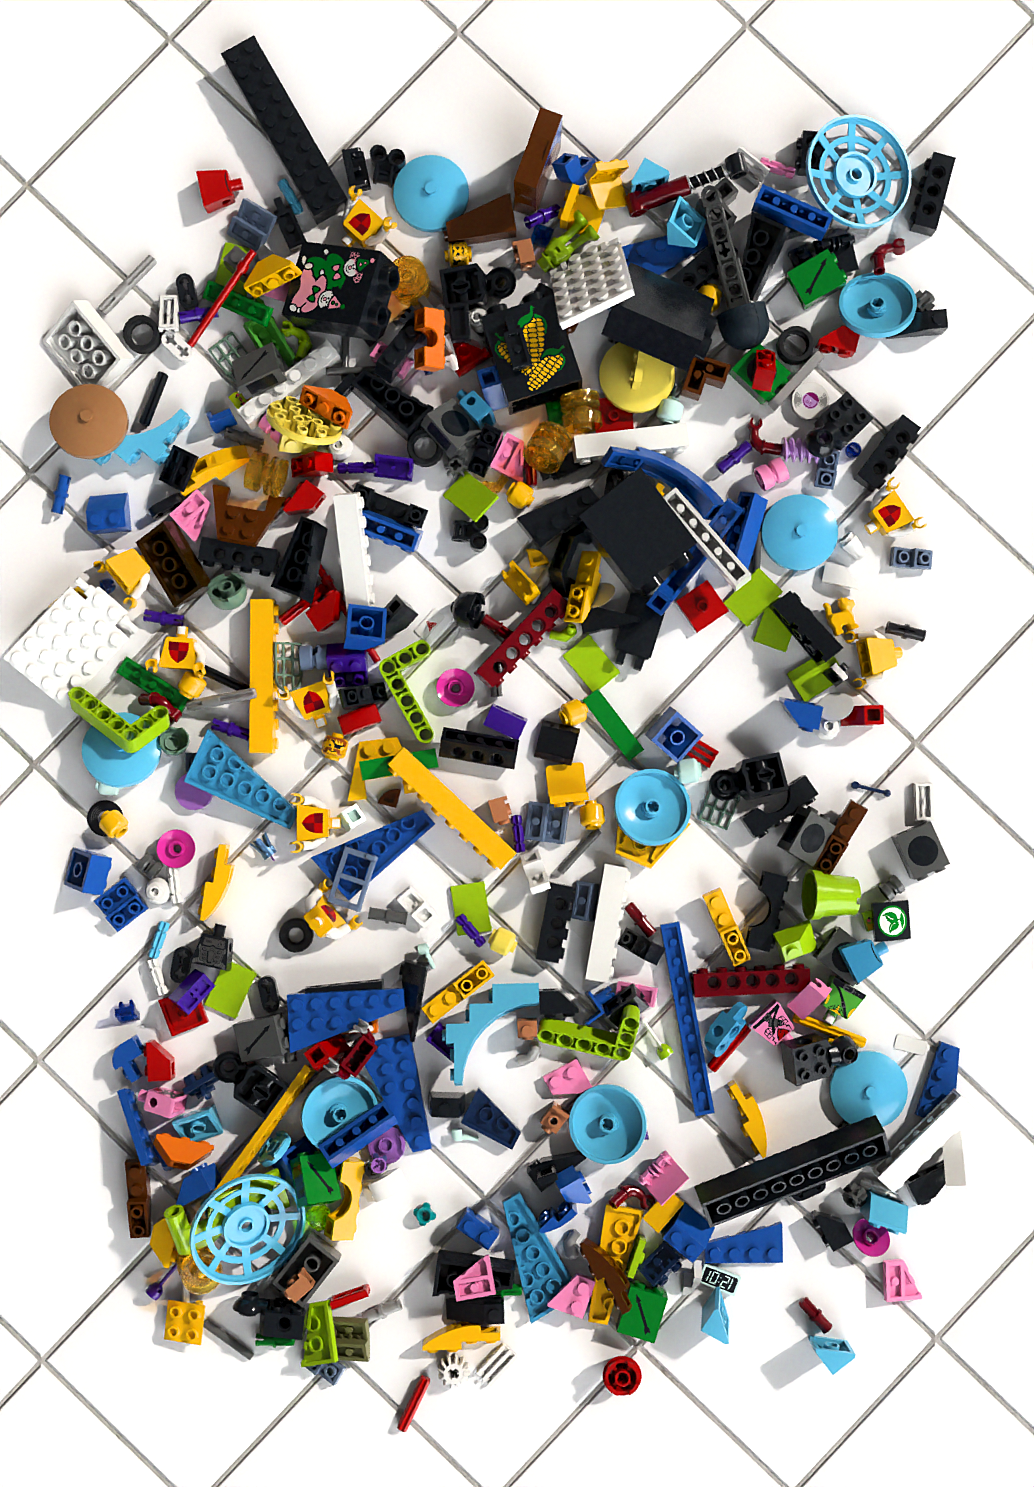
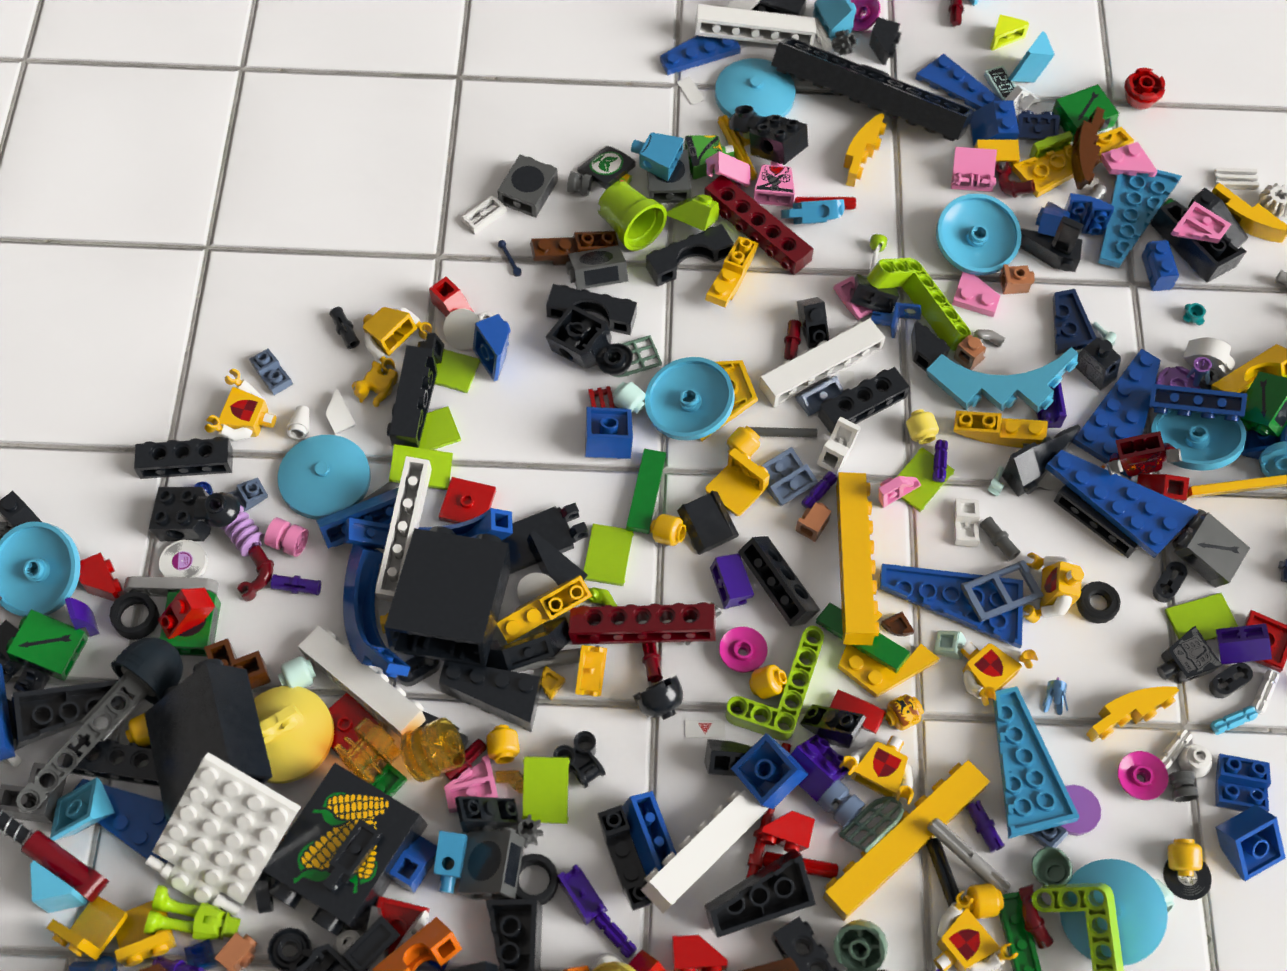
camera: 135 degrees left, 25 degrees down
(253, 1083) = (1258, 521): black brick -> none
(421, 682) = (768, 681): none -> yellow head
(473, 876) = (895, 488): none -> bright pink wing
(687, 1018) = (833, 249): blue plate -> none
(761, 1330) = (1008, 31): none -> neon yellow slope
(817, 310) = (82, 616): none -> dark purple slope

